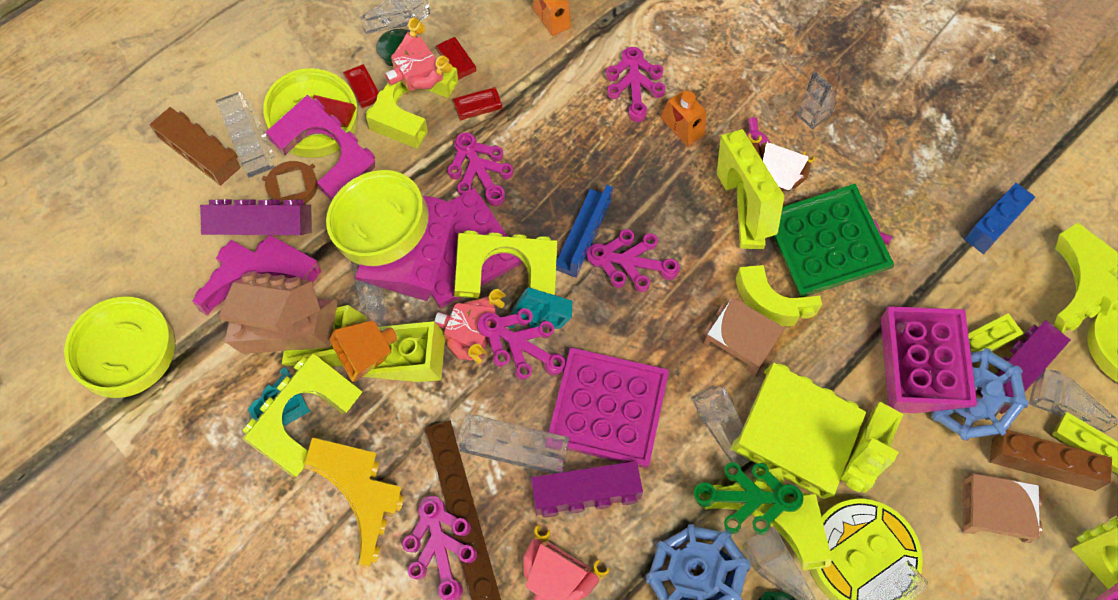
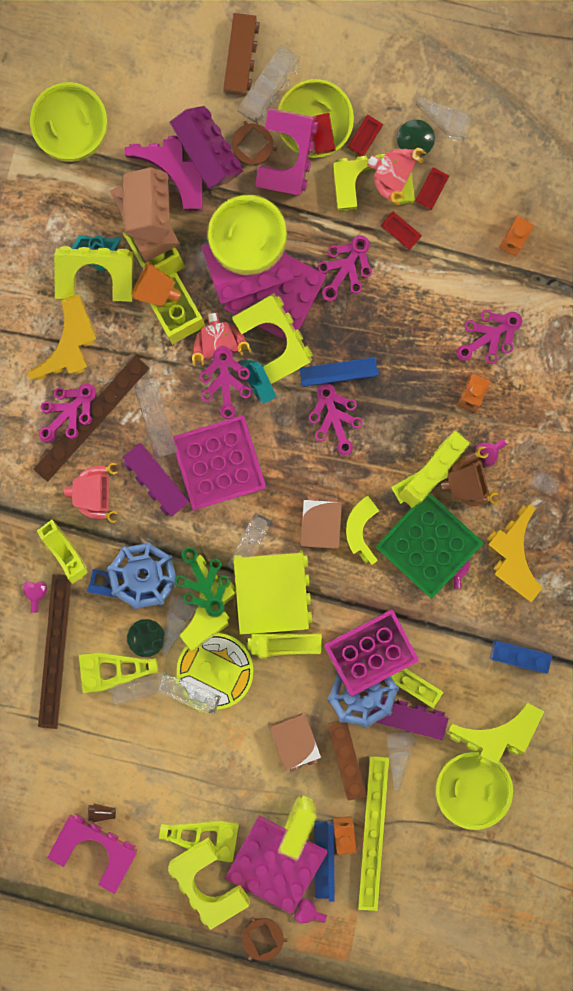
camera: 55 degrees right, 25 degrees up
(893, 176) = (510, 546): none -> yellow arch

